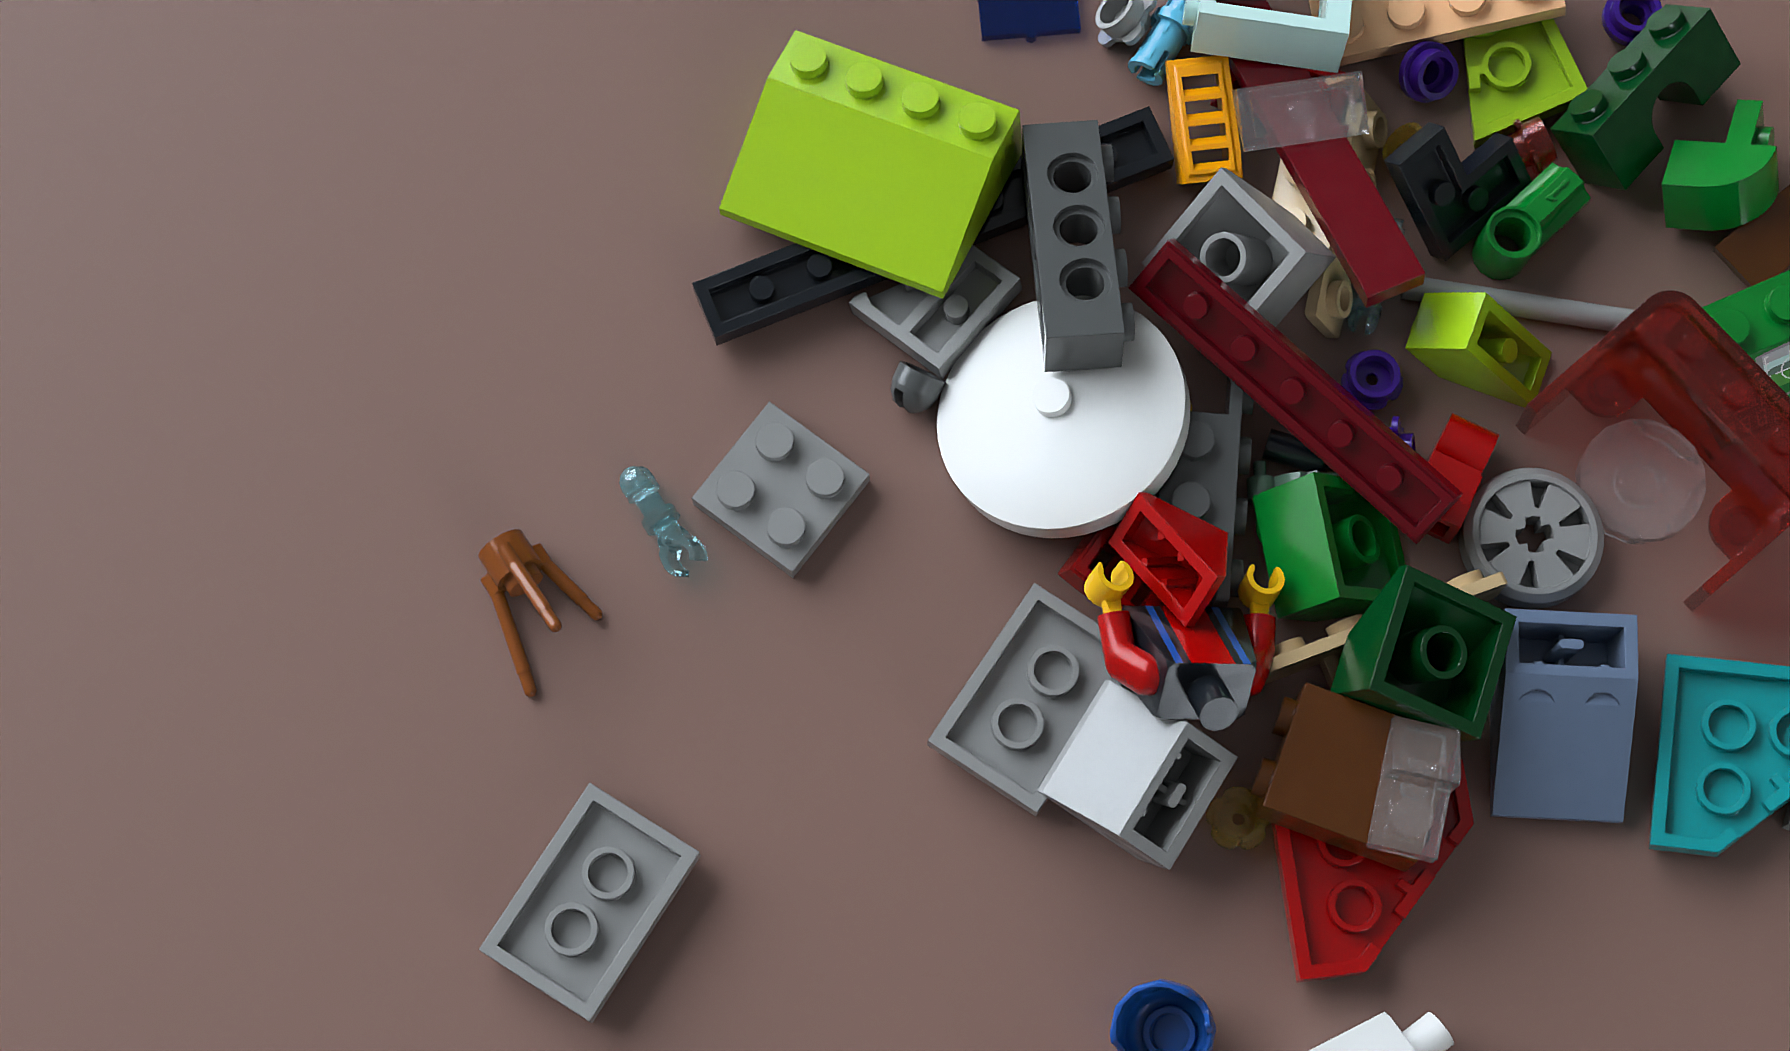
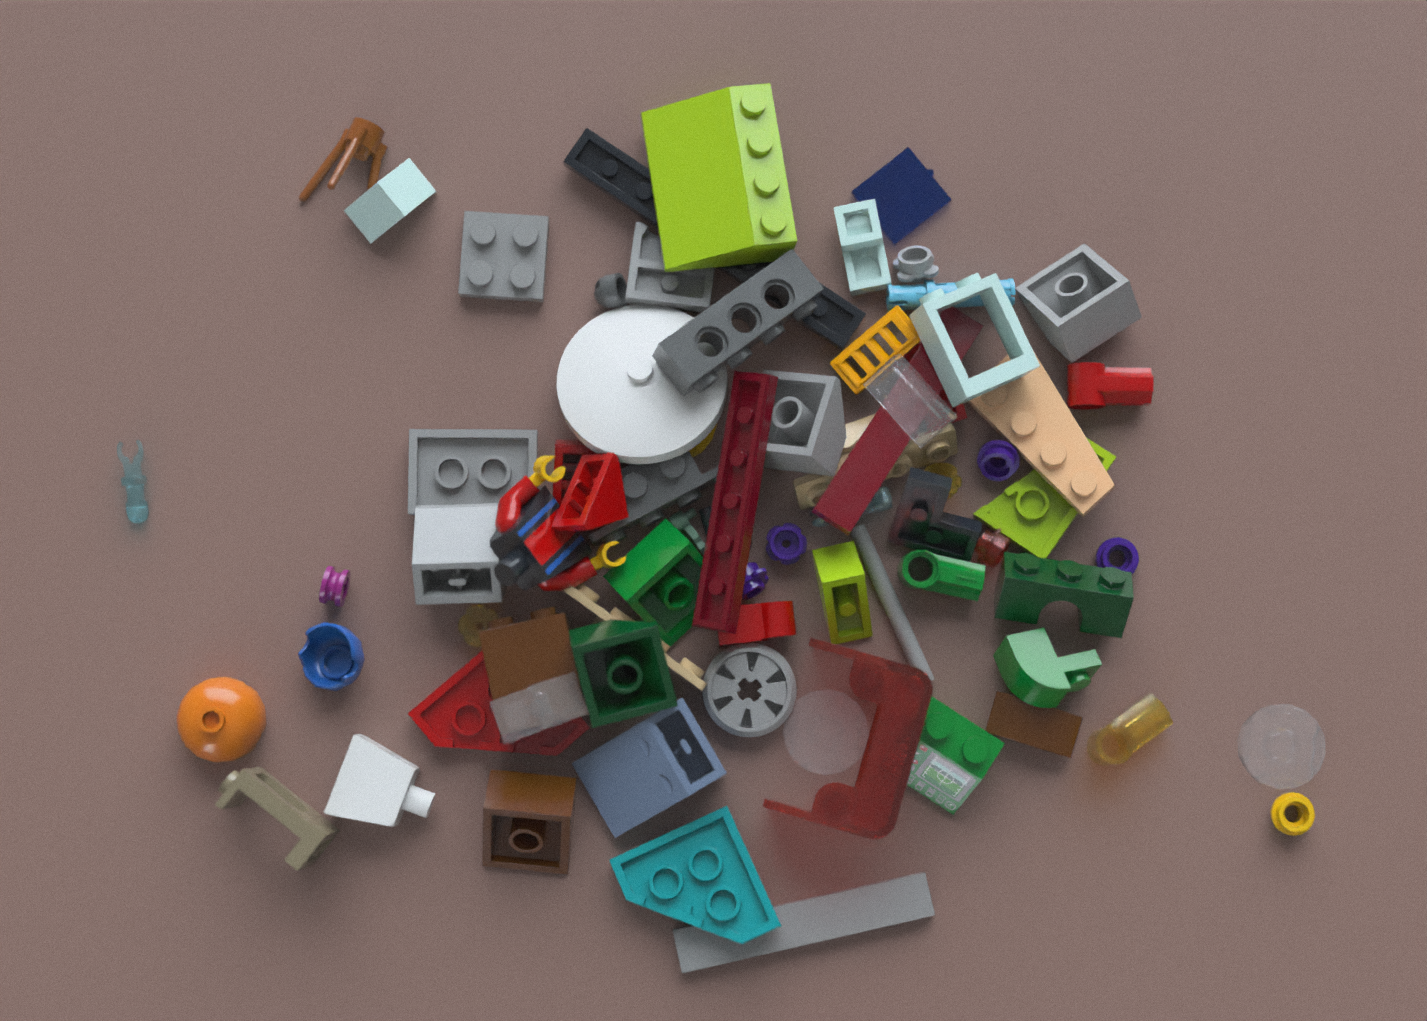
camera: 50 degrees right, 10 degrees up
(590, 902) = (205, 307): light grey plate -> none
(615, 583) = (389, 200): none -> light aqua slope
(660, 520) = (442, 202): clear light blue piece -> none
(1060, 65) = (862, 247): none -> light aqua slope
(1070, 969) = (334, 586): none -> magenta bush
(1538, 913) = (528, 821): none -> reddish brown slope

